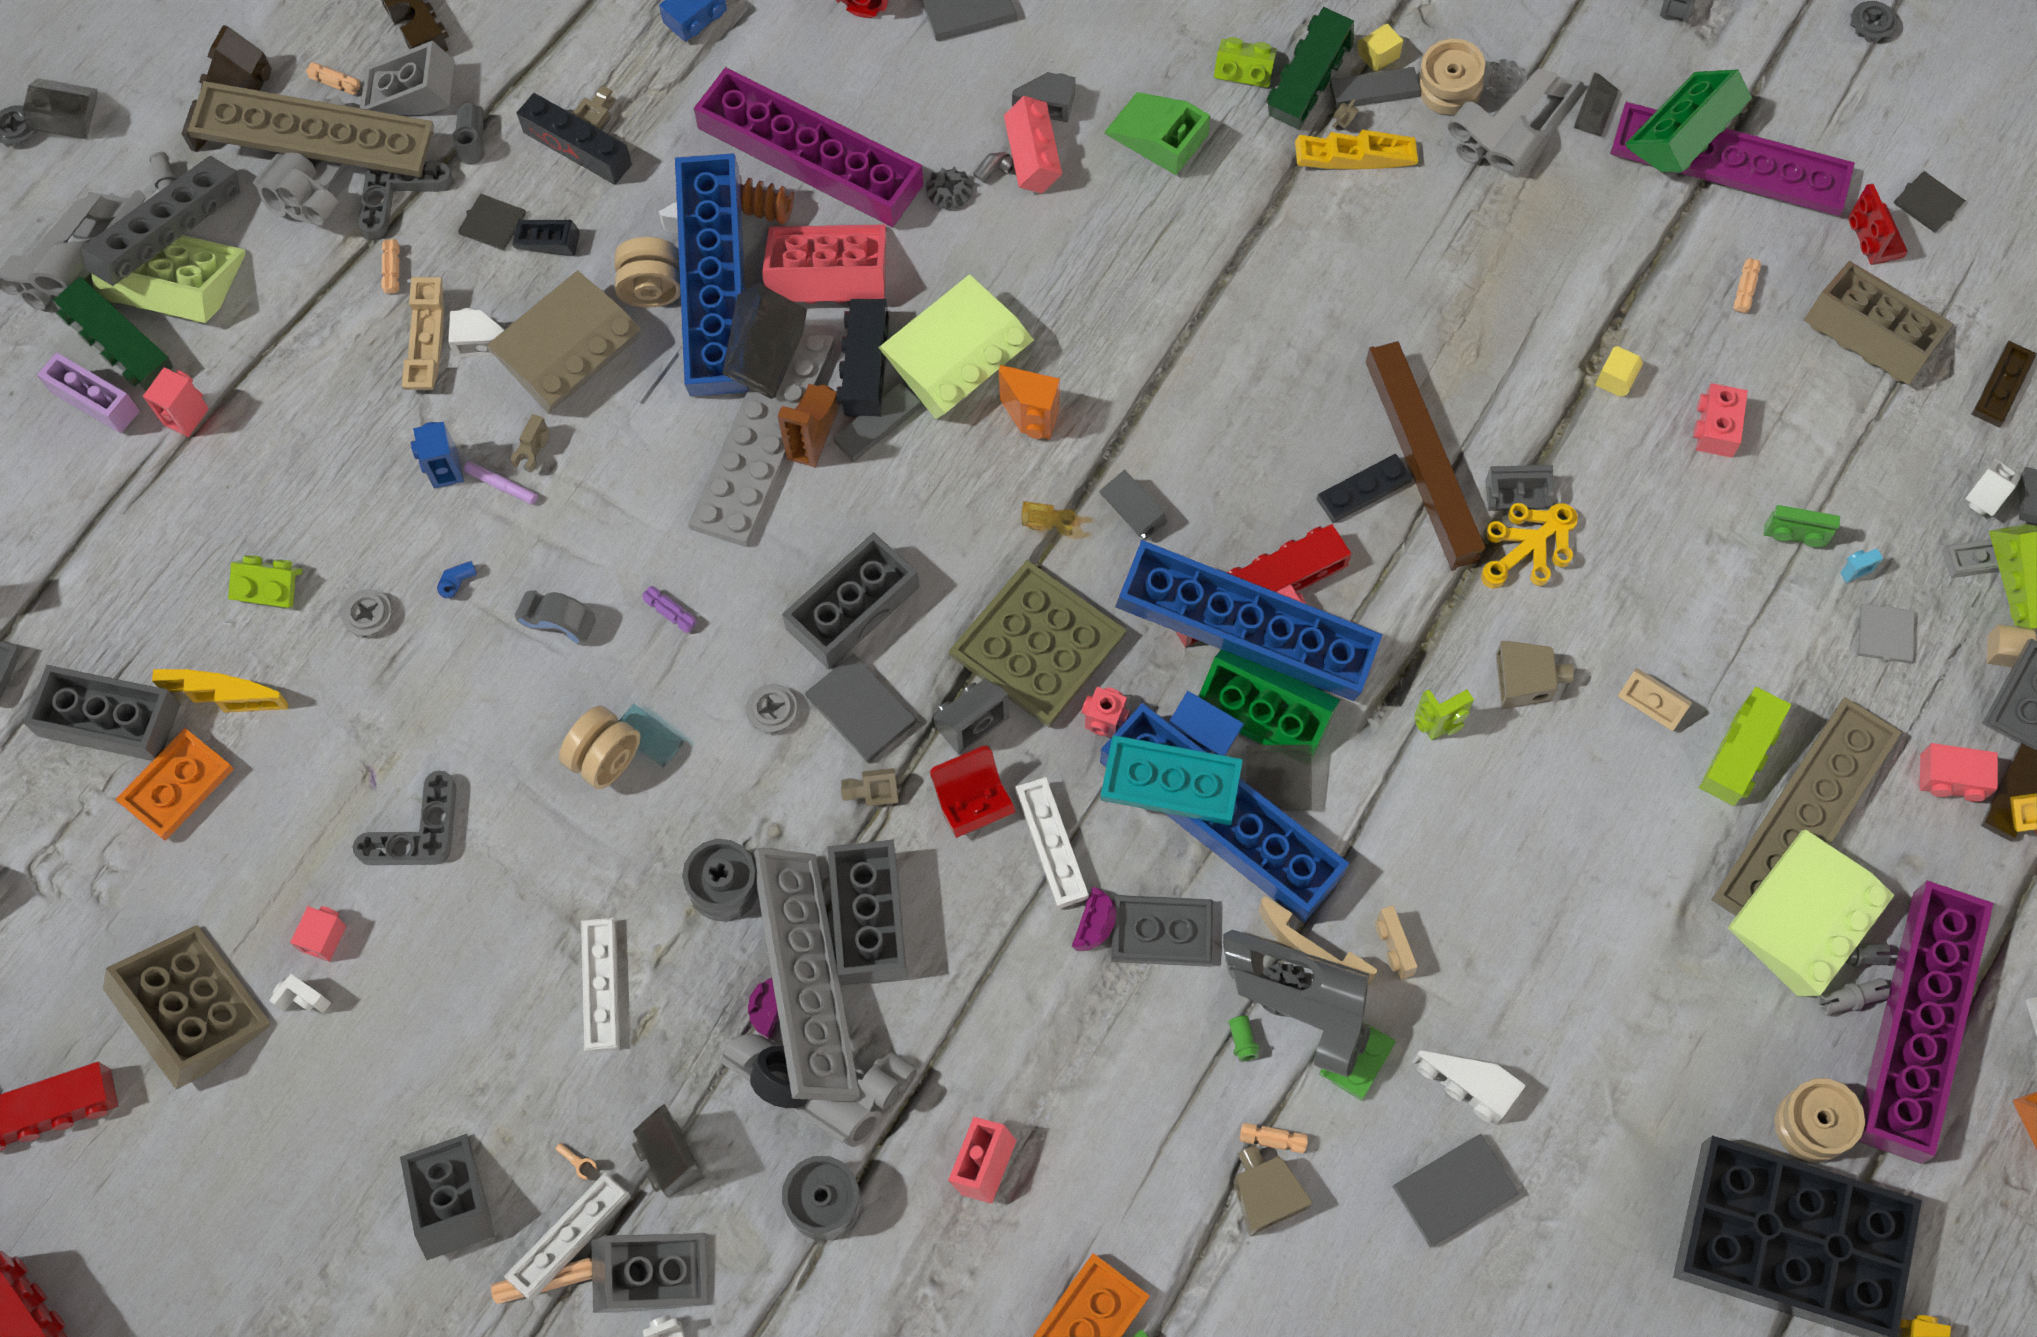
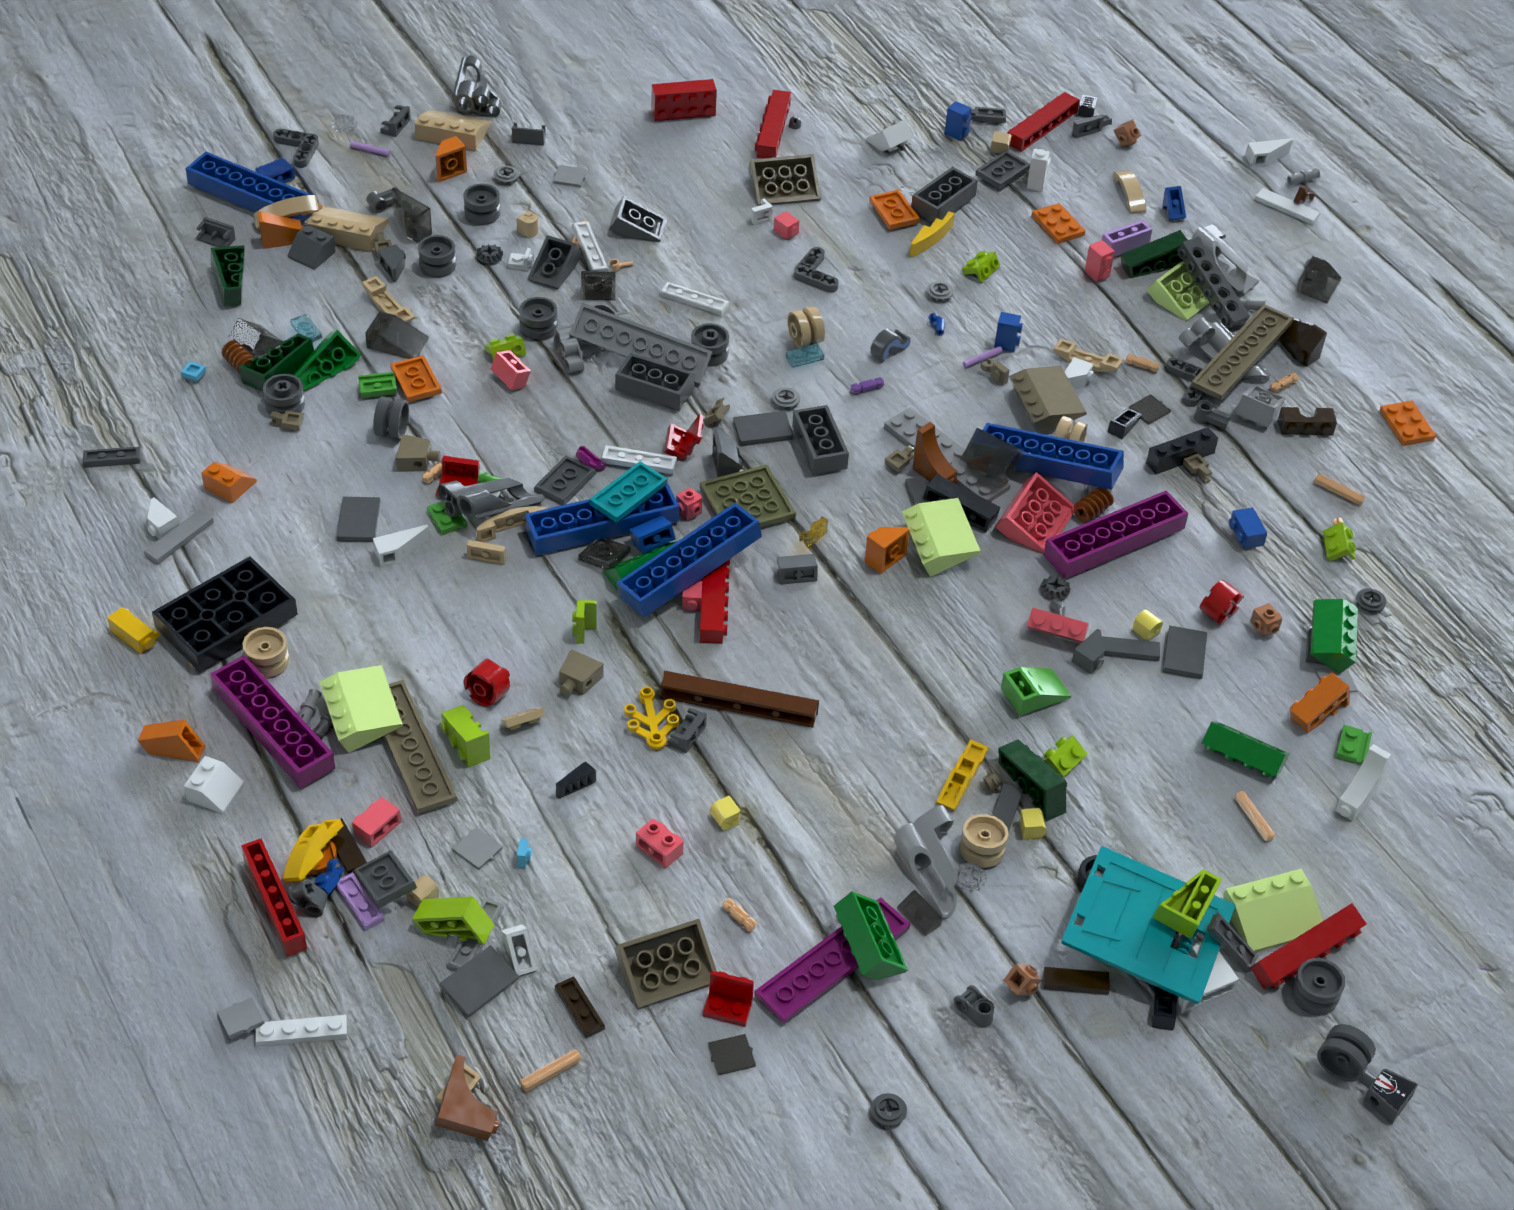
camera: 115 degrees right, 20 degrees down
(78, 522) = (1058, 223): none -> orange plate
(818, 484) = (899, 460): none -> dark tan plate
(918, 1218) = (511, 342): none -> lime bracket
(954, 55) = (1147, 625): none -> light yellow piece
(1001, 60) = (1131, 648): none -> dark grey tile
(1232, 1280) = (391, 417): none -> dark grey wheel
(1281, 1083) = (459, 469): none -> red bracket
(1364, 488) = (739, 664): black plate -> none
(1643, 771) = (487, 683): none -> red brick
(1704, 571) = (577, 779): none -> black slope
(1801, 525) = (566, 835): bright green plate -> none

